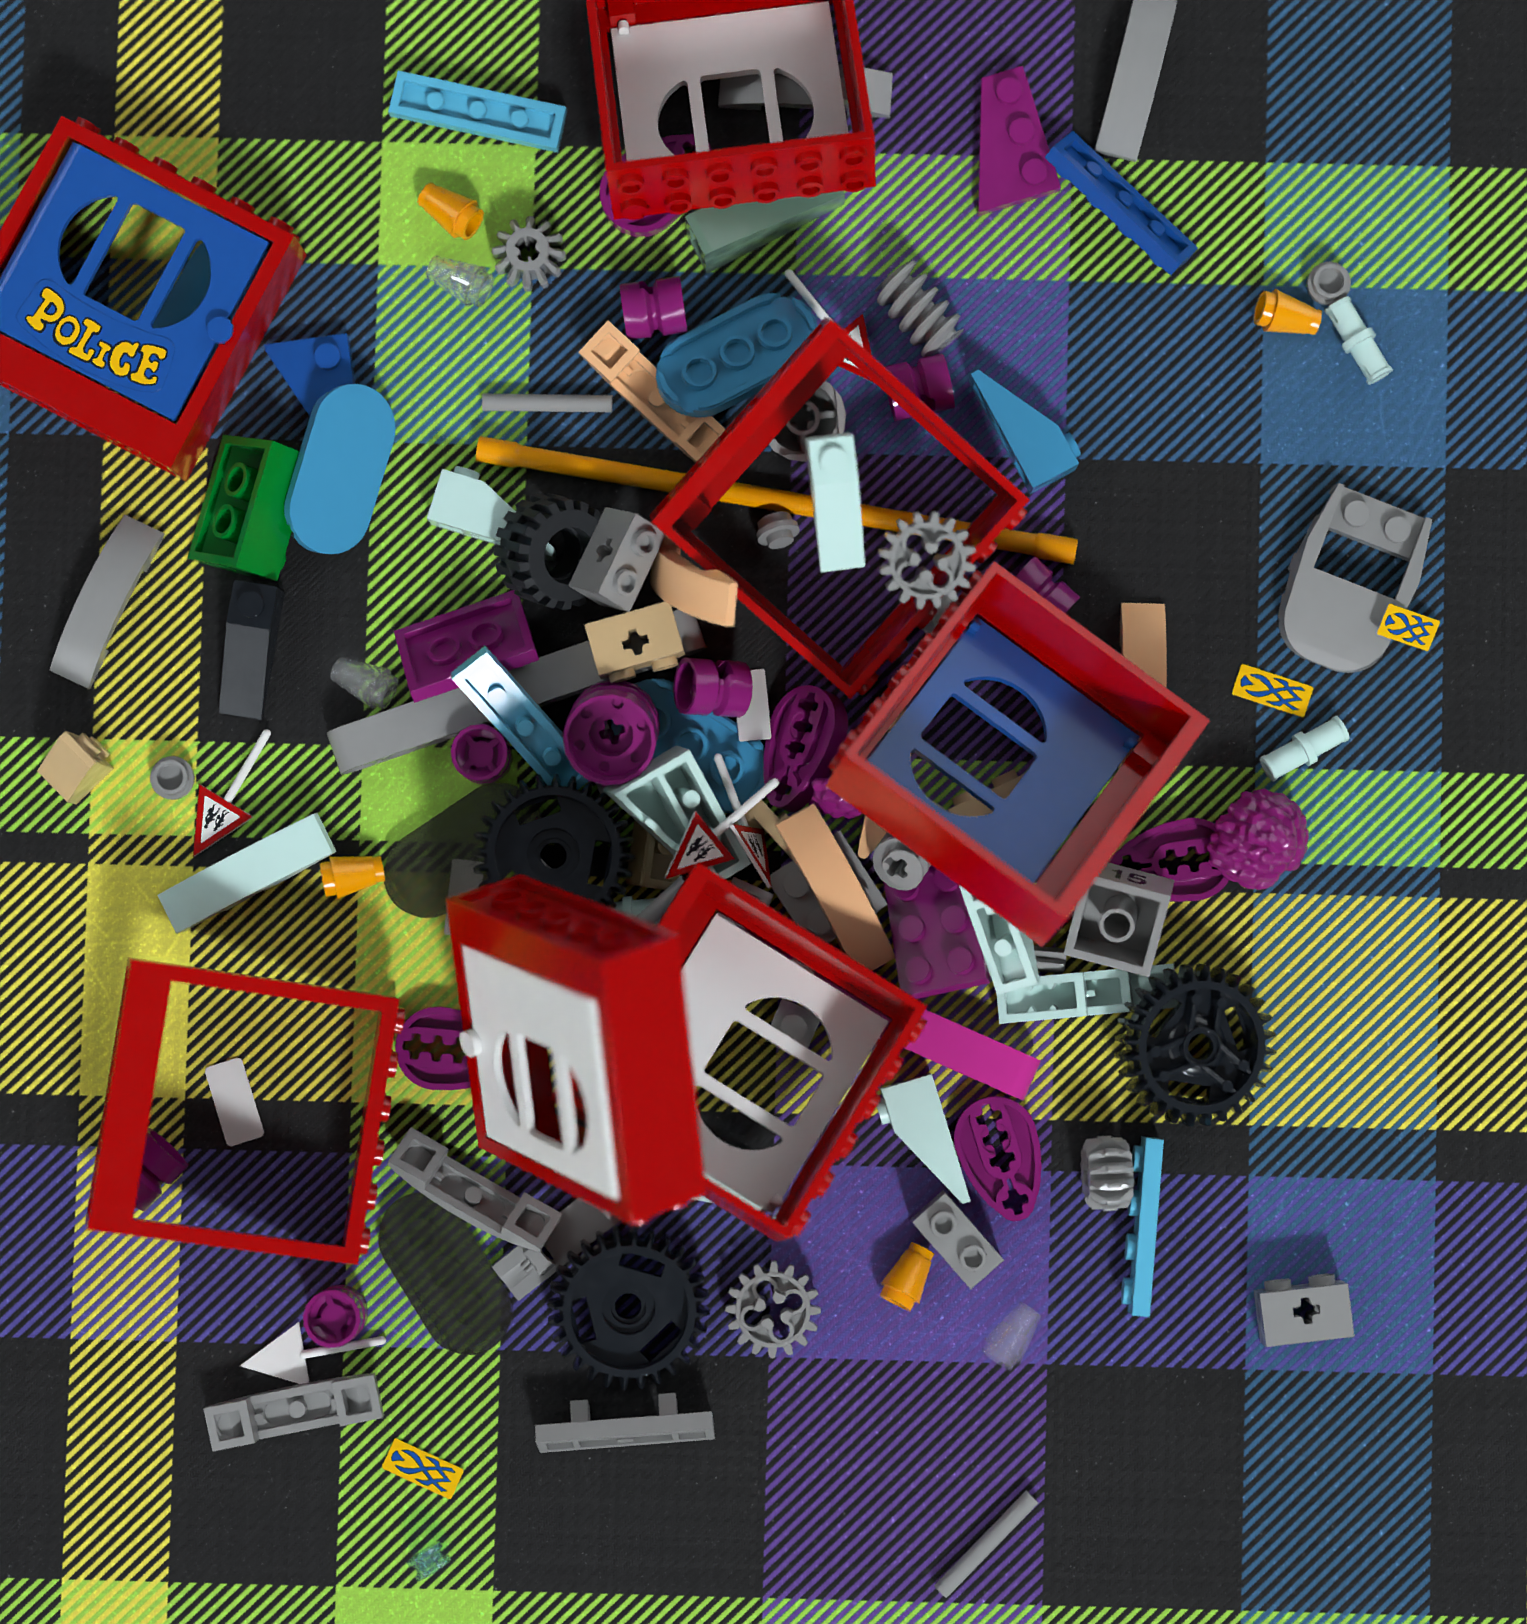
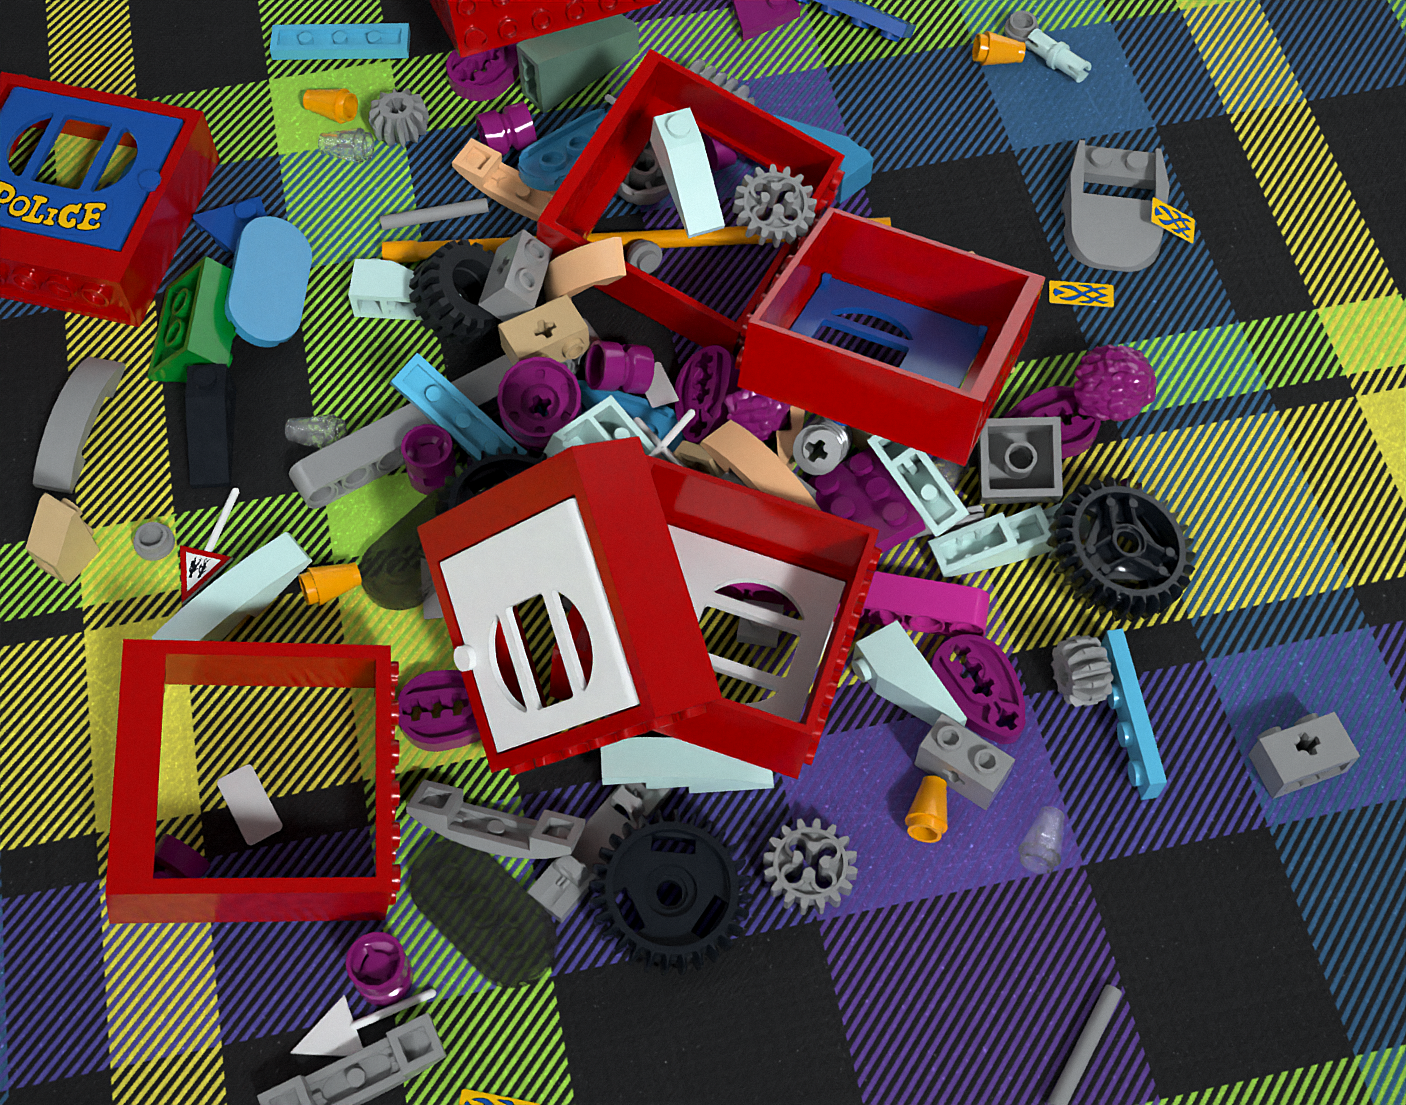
camera: 20 degrees left, 25 degrees down
(444, 642) = (373, 395): magenta plate -> none
(588, 1434) = (696, 1016): light grey hinge -> none
(1304, 748) = (1124, 320): light aqua pin -> none

